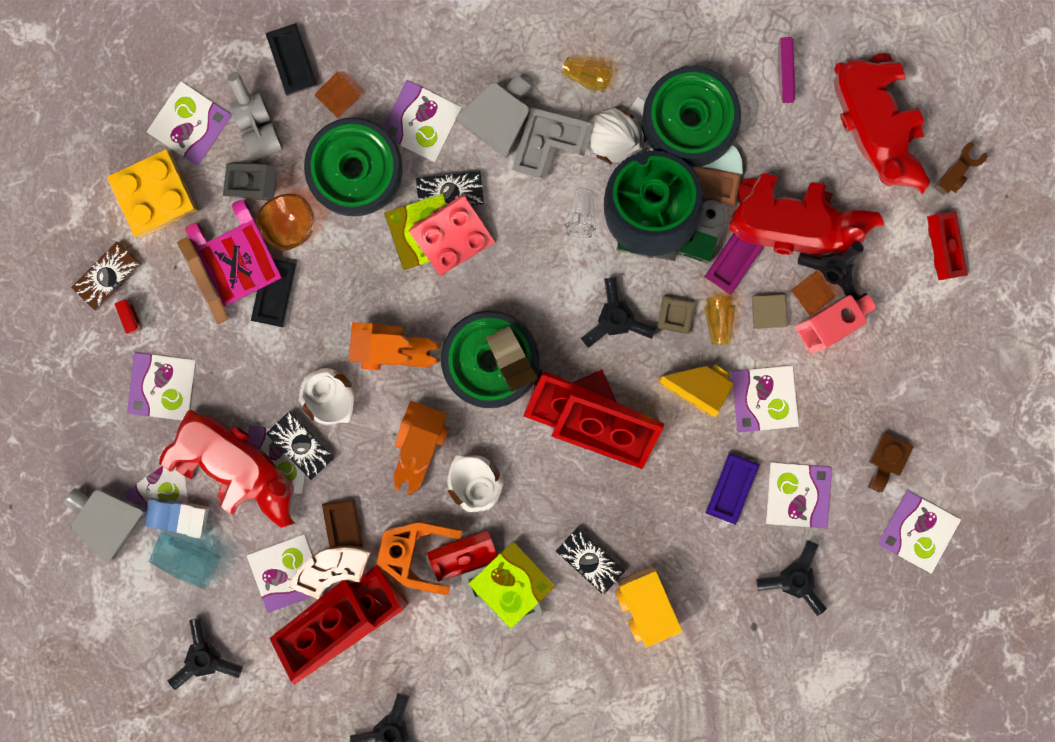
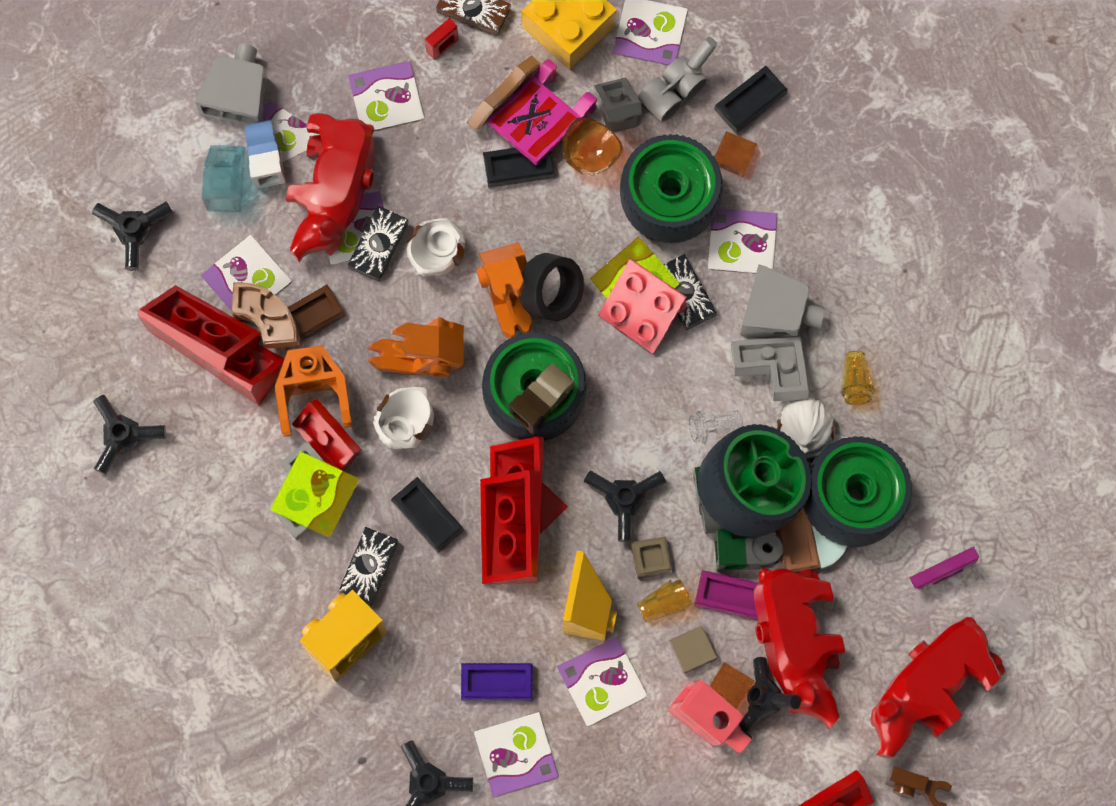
camera: 70 degrees right, 15 degrees down
(416, 298) = (569, 292): none -> black tyre
(563, 493) = (427, 514): none -> black tile

